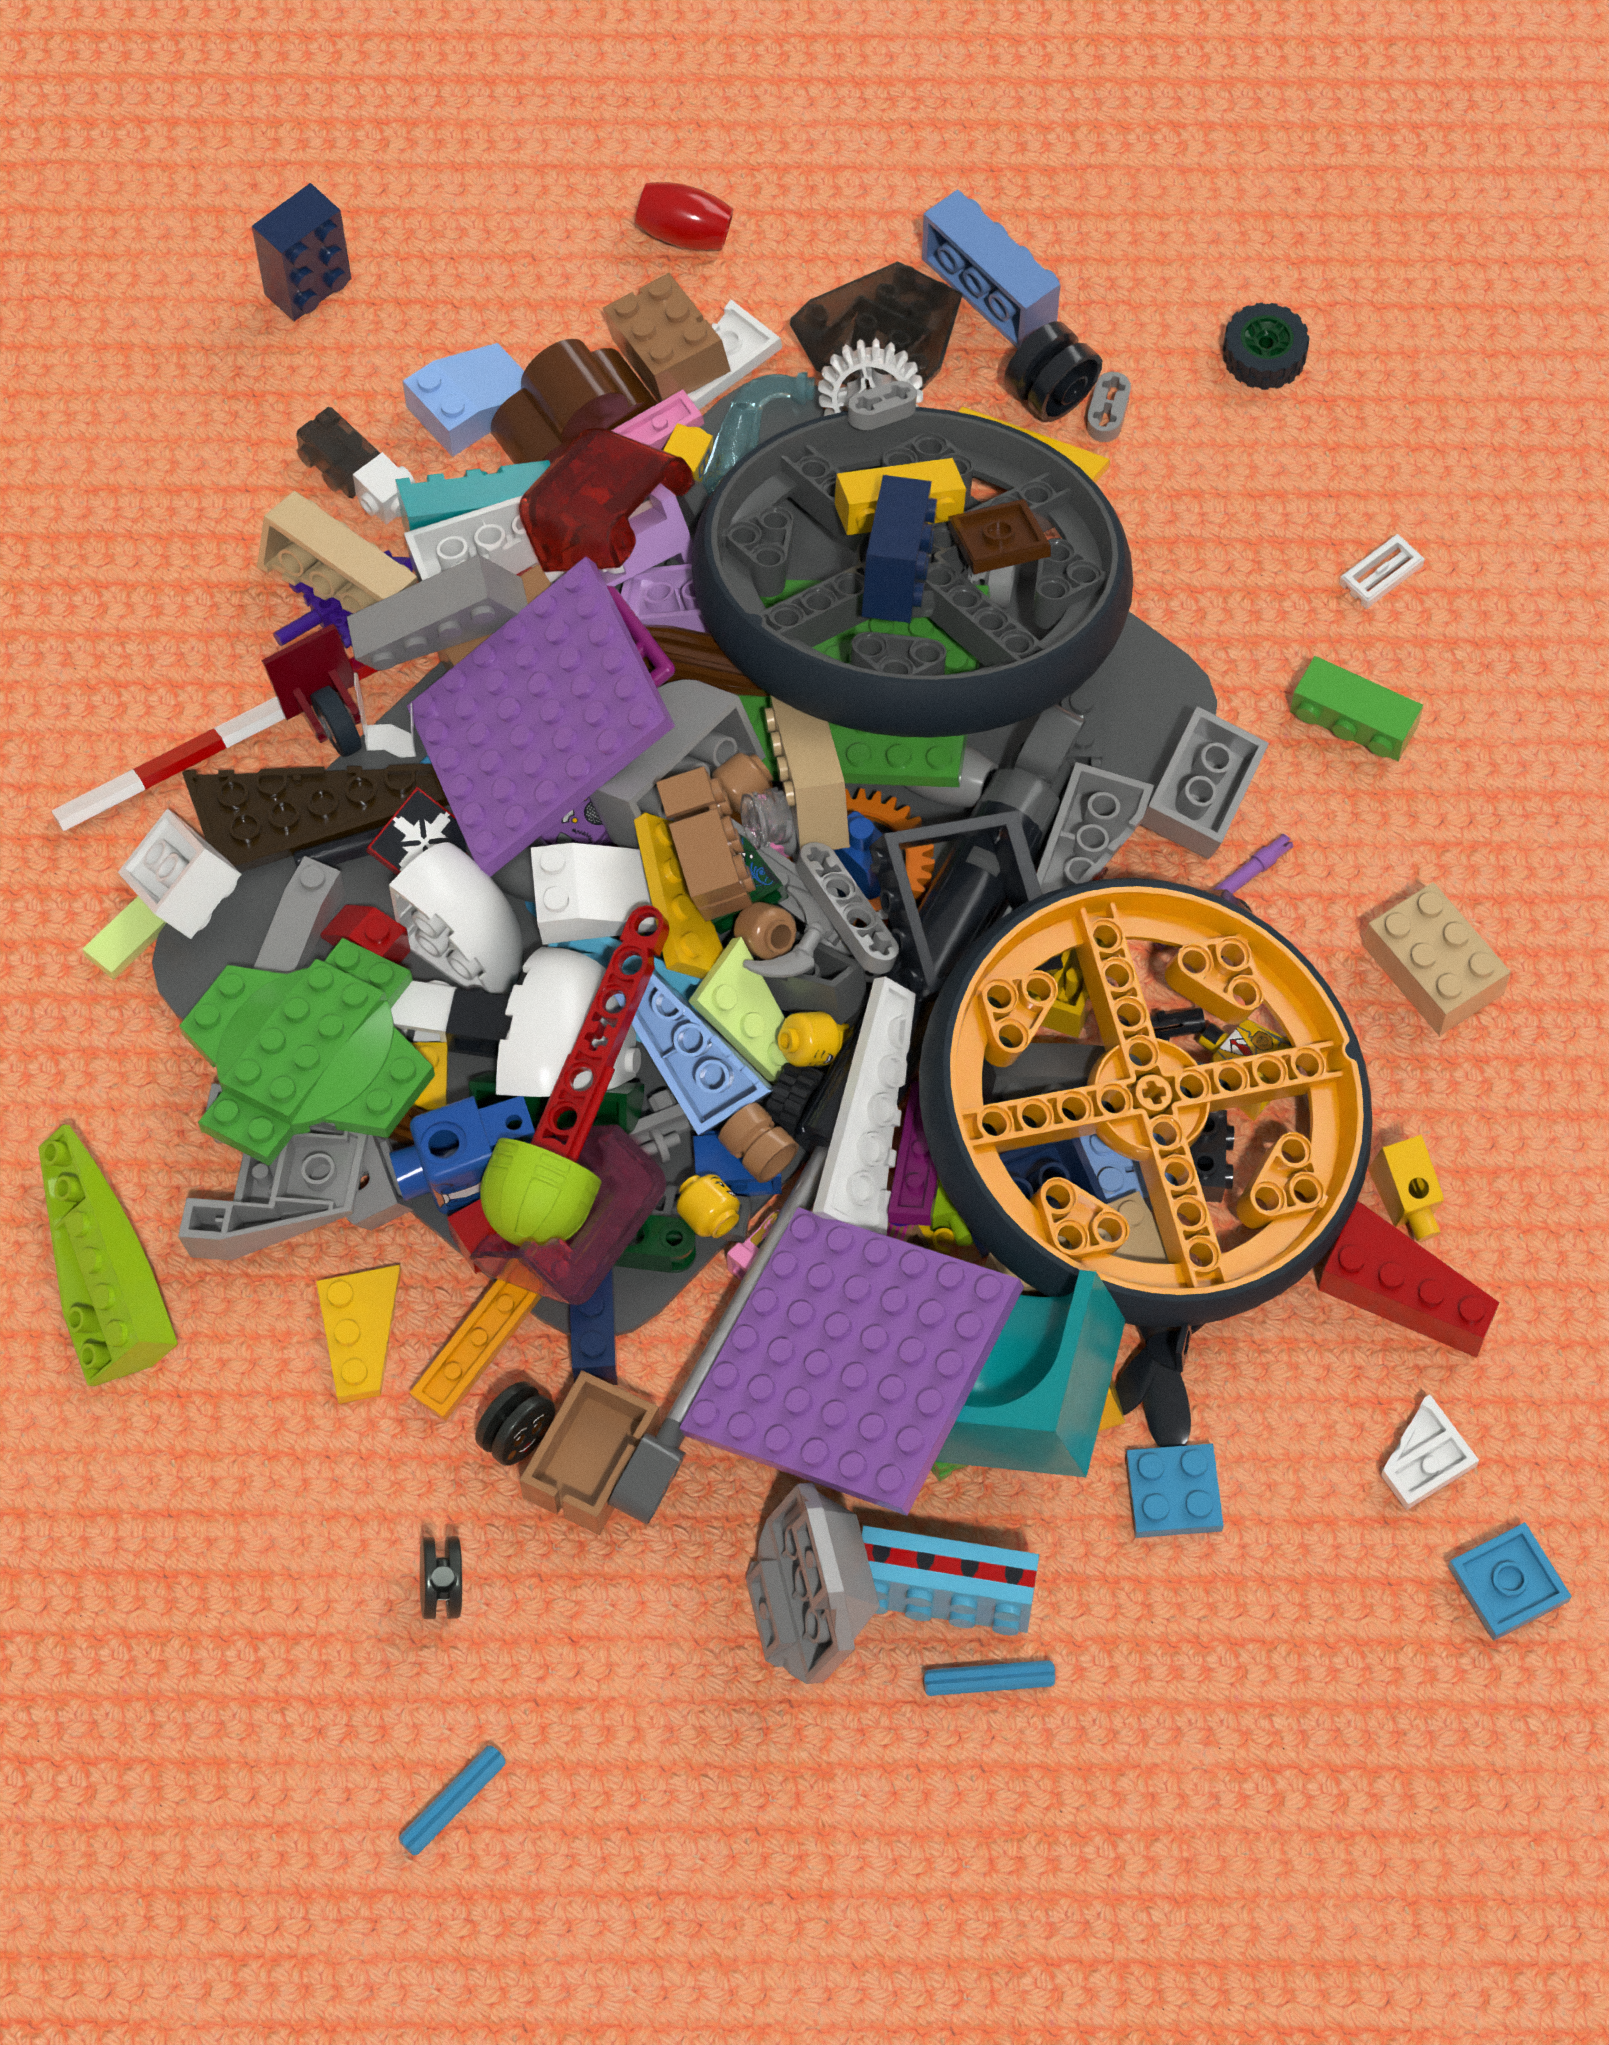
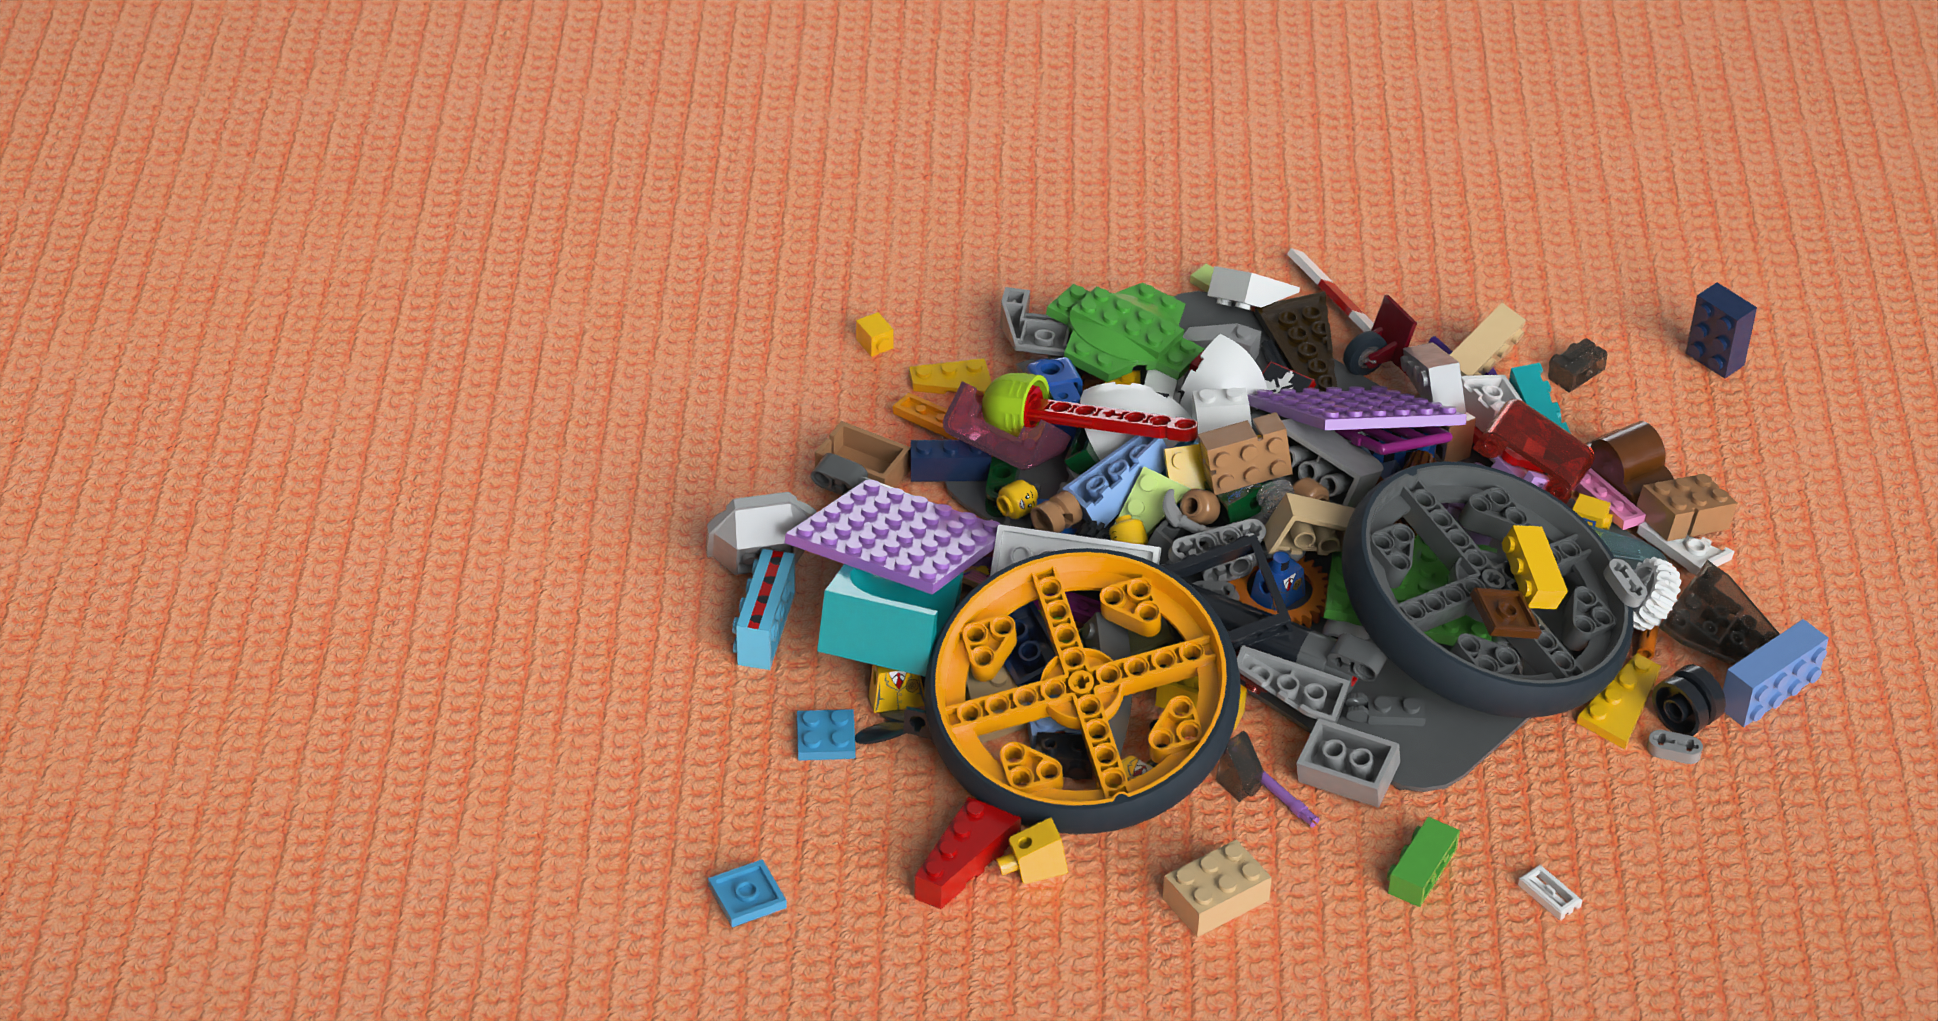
camera: 90 degrees right, 20 degrees down
(100, 1267) = (995, 271): lime wedge -> none
(260, 1451) = (874, 334): none -> yellow brick
(377, 487) = (1559, 380): white brick -> none
(386, 736) = (1365, 355): white piece -> none
(440, 1577) = (787, 399): pearl dark grey head -> none
(452, 1800) = (657, 414): dark azure axle -> none
(461, 394) = (1626, 406): light blue slope -> none
(515, 1423) = (886, 422): pearl dark grey head -> none
(684, 216) = (1796, 522): red piece -> none
(899, 549) = (1473, 538): dark blue brick -> none
(989, 1678) = (707, 641): dark azure axle -> none
(1251, 335) = (1741, 834): black wheel -> none
(1427, 1456) = (839, 858): white wing -> none

